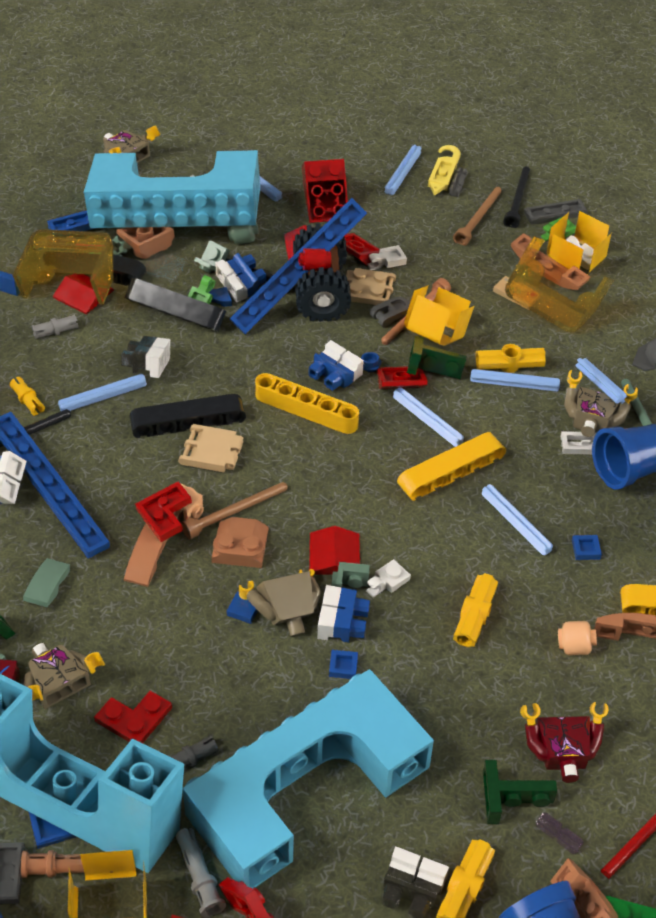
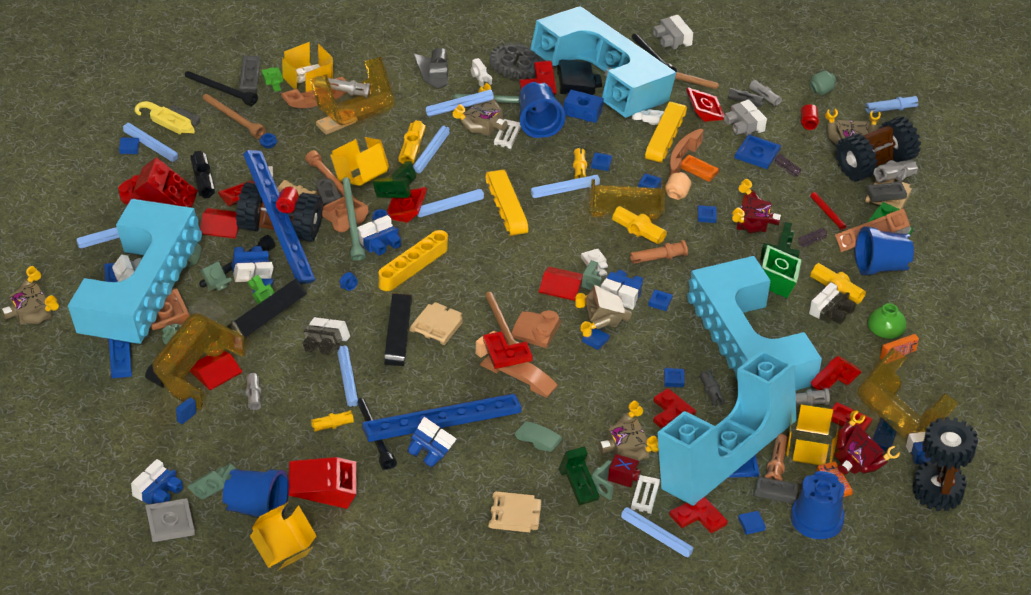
camera: 75 degrees left, 5 degrees down
(198, 708) = (674, 377): none -> blue tile
(251, 359) = (348, 279): none -> blue plate
(302, 353) = (356, 251): none -> sand green piece
(358, 328) = (337, 213): none -> nougat slope
(377, 209) = (202, 174): none -> black piece
(390, 157) = (129, 146): none -> blue tile
(439, 652) = (667, 251): none -> nougat pin
(443, 789) = (781, 270): none -> green slope
(453, 248) = (268, 140): none -> blue plate
(520, 585) = (634, 199): none -> clear yellow windscreen
(543, 686) = (707, 214): none -> blue tile
(565, 524) = (579, 163): none -> yellow pin
(569, 283) = (350, 87): none -> light grey pin
(572, 607) = (649, 181): none -> blue tile
(636, 659) = (699, 168): none -> orange tile

